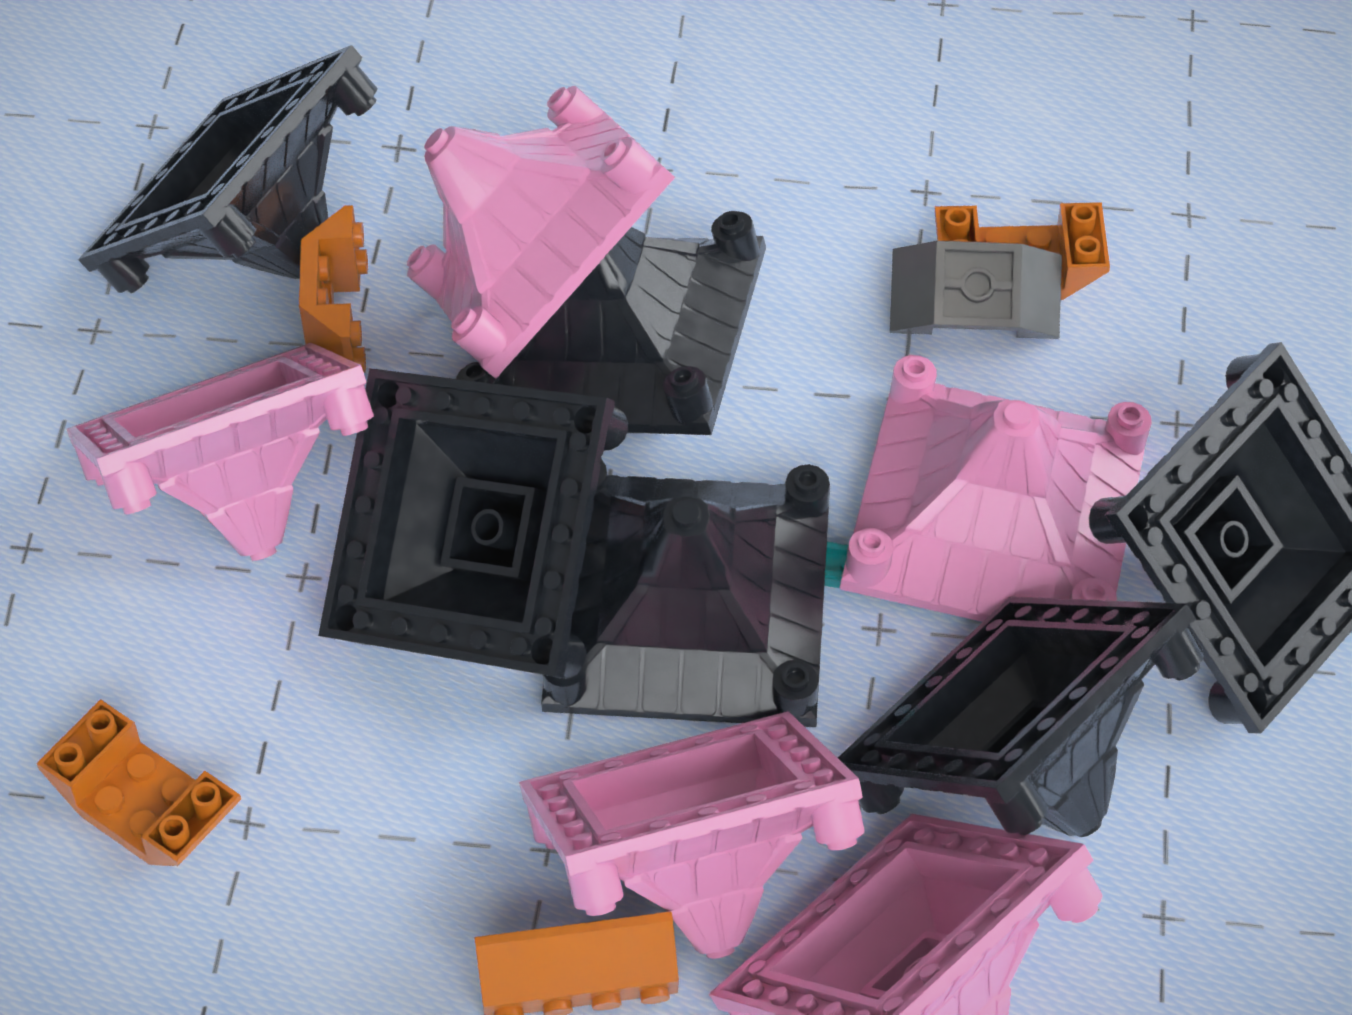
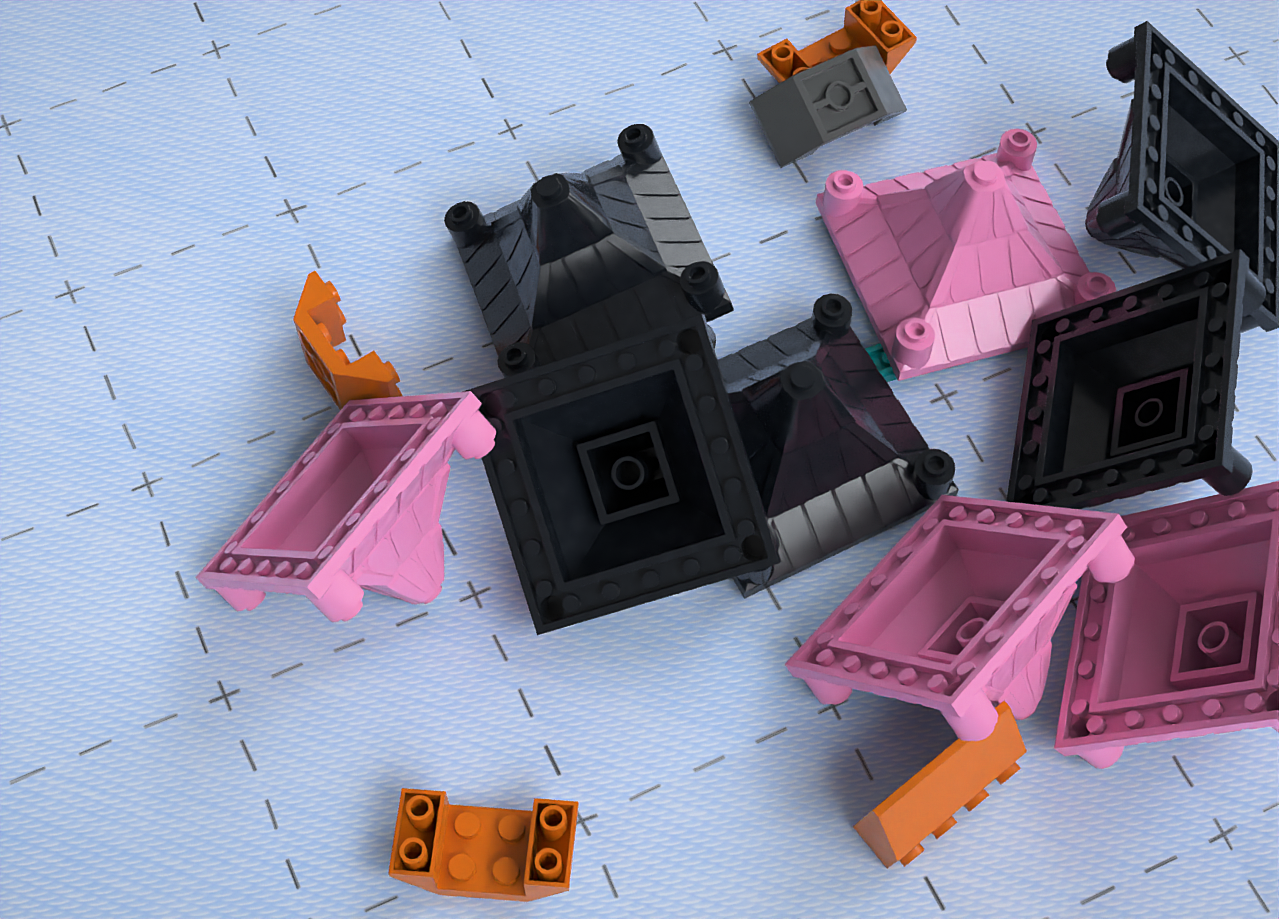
camera: 30 degrees left, 5 degrees up
(242, 179) = (199, 290): black piece -> none
(528, 220) = (502, 211): bright pink piece -> none

